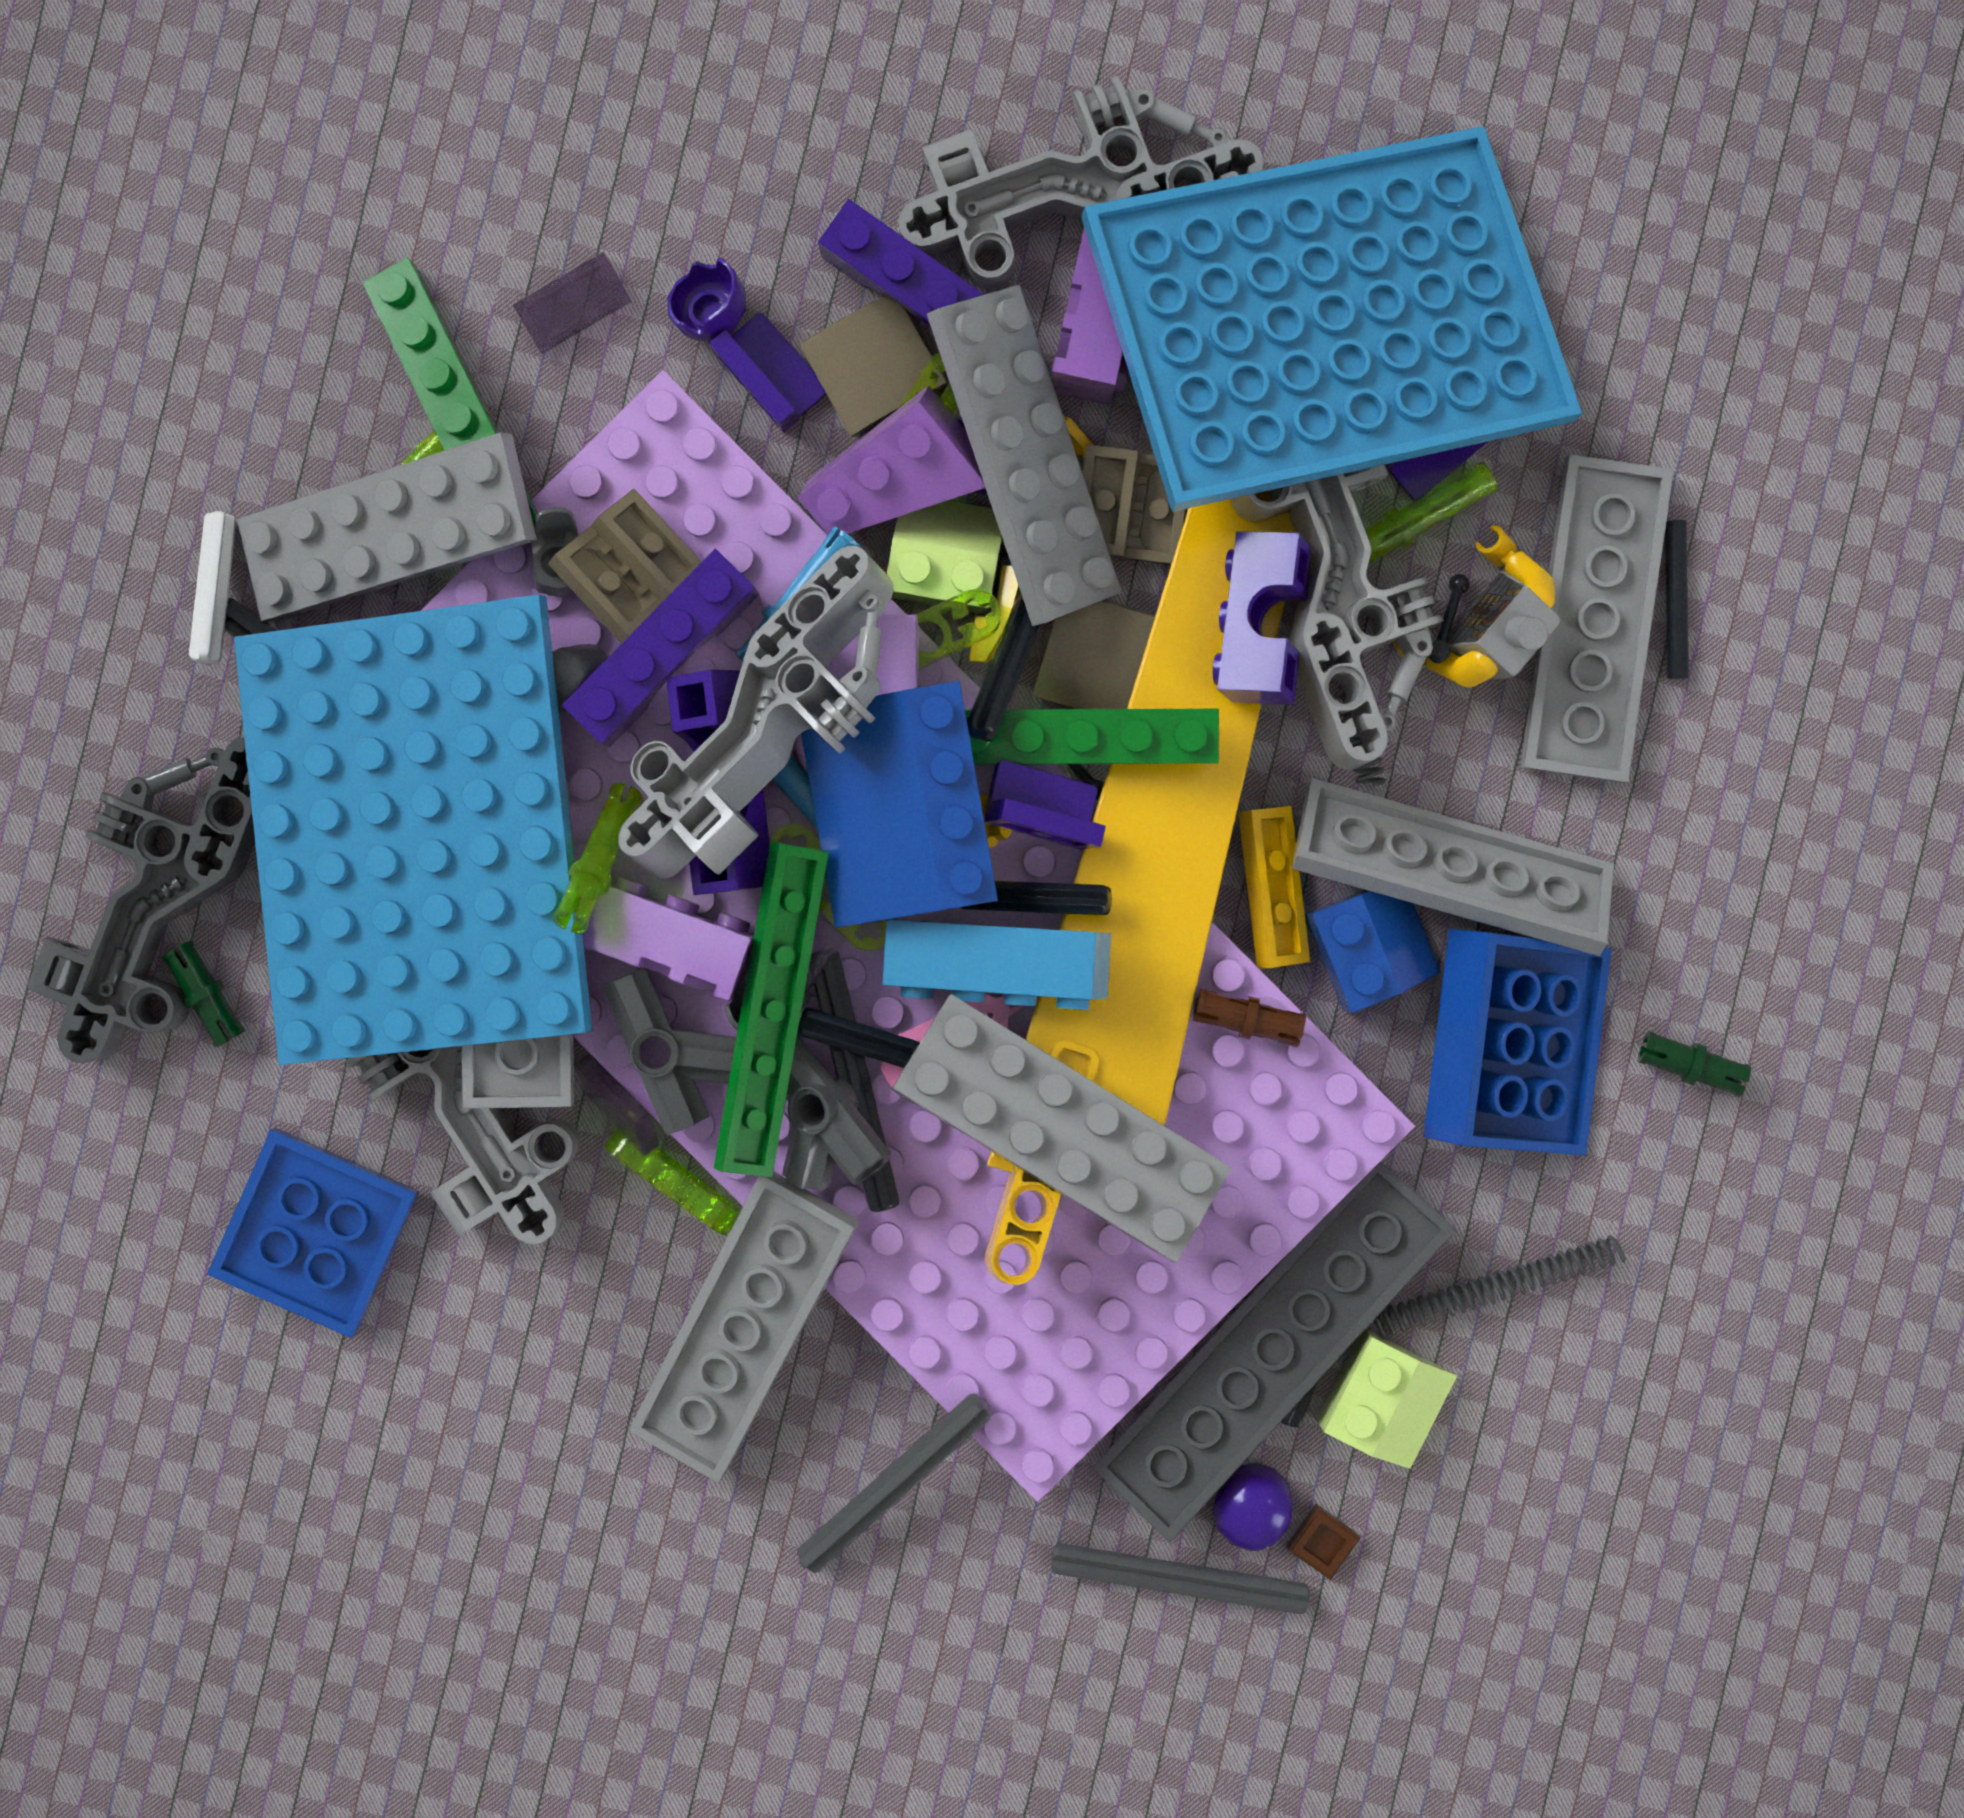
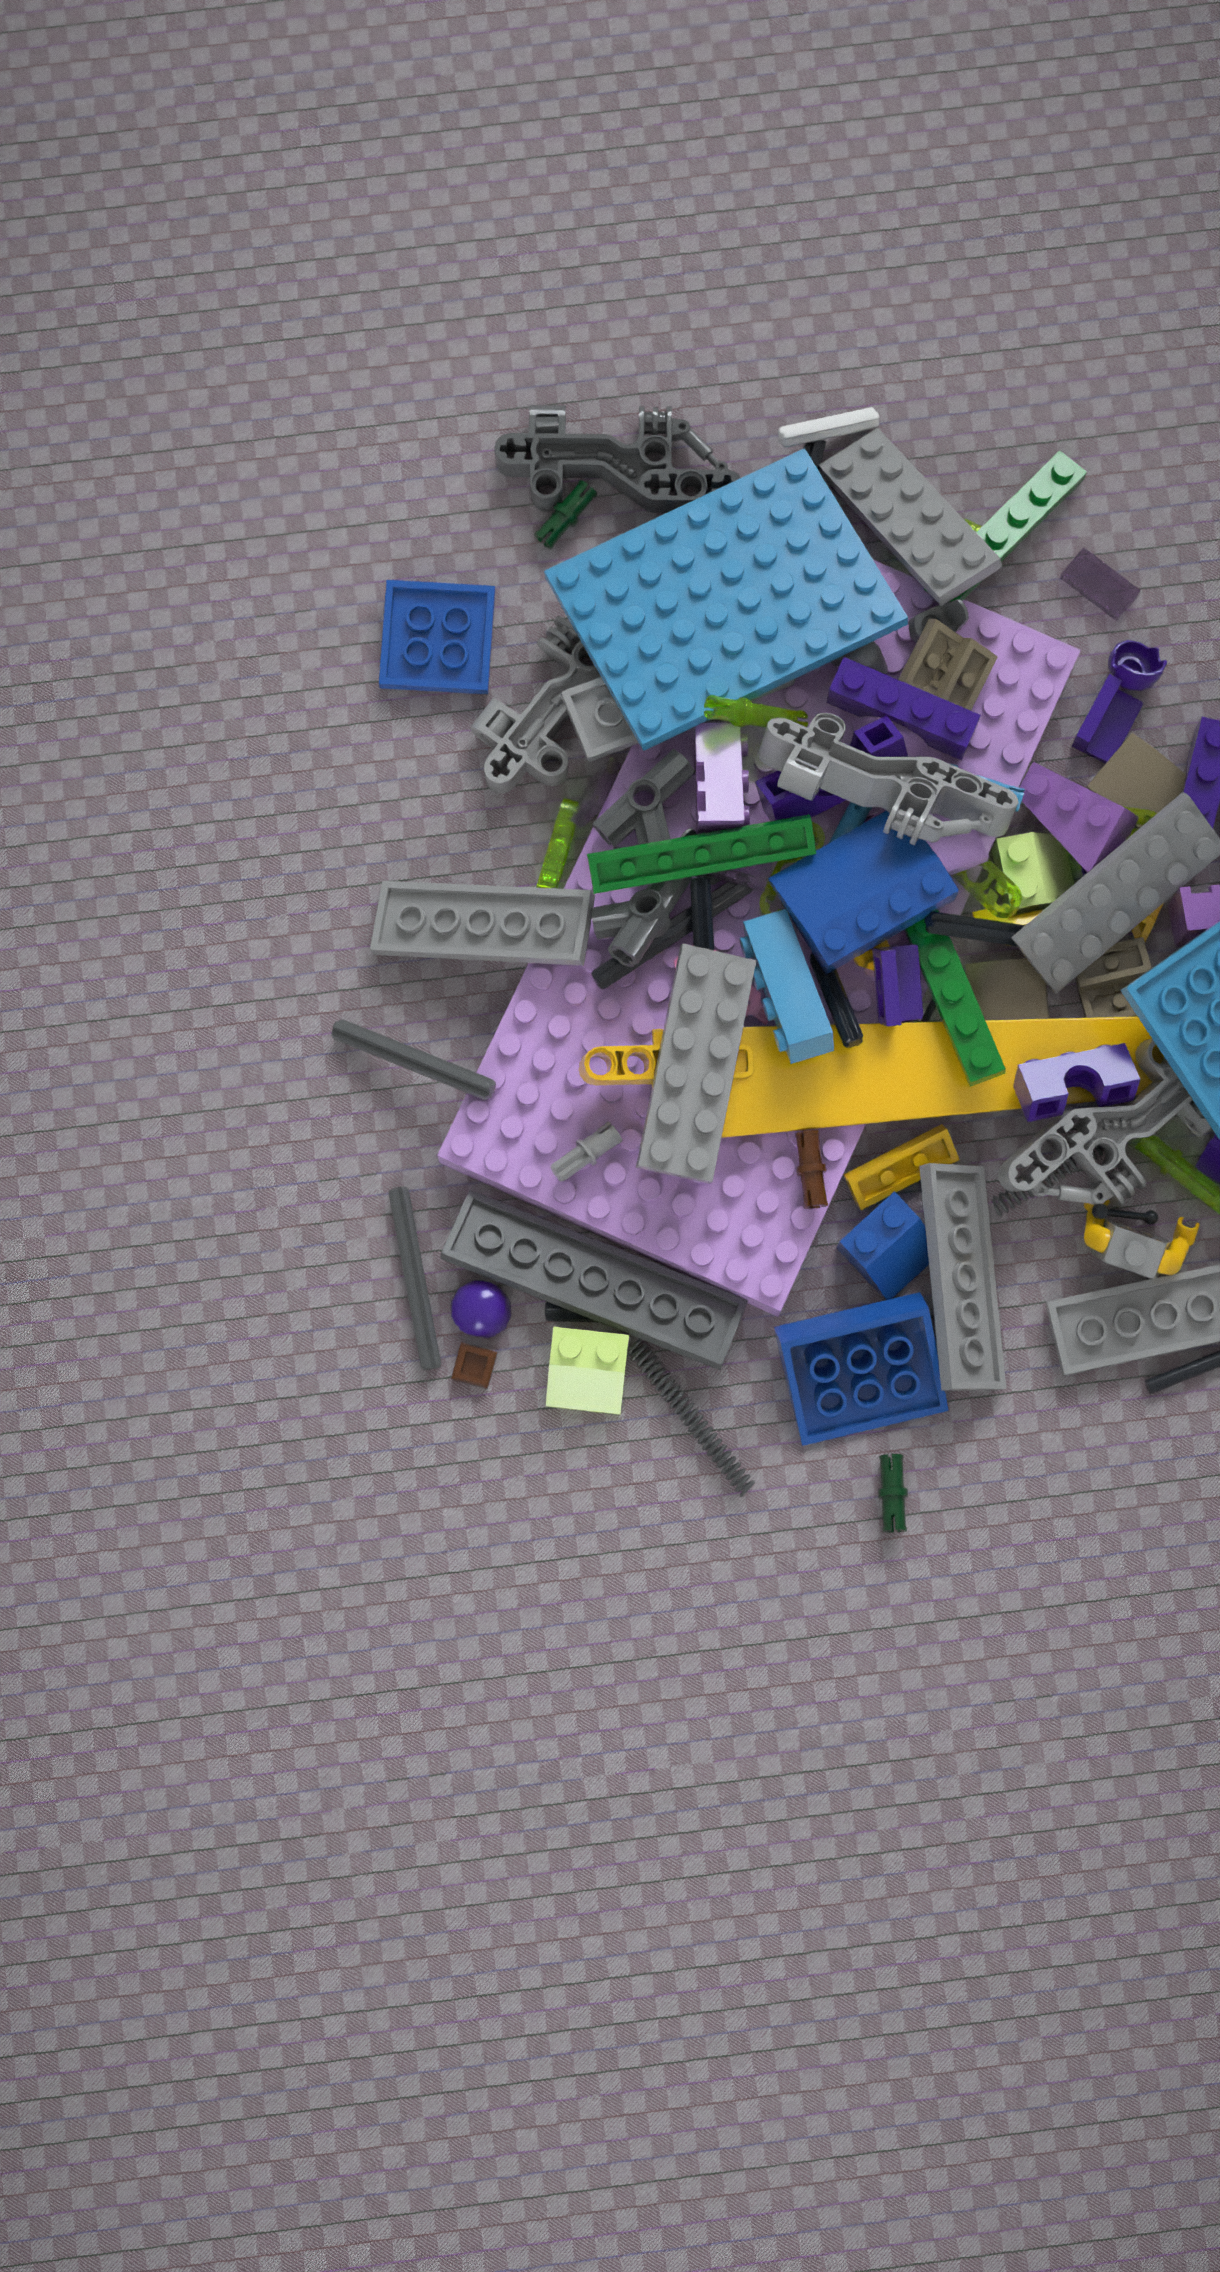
camera: 70 degrees right, 10 degrees down
(1114, 1310) = (586, 1152): none -> light grey axle

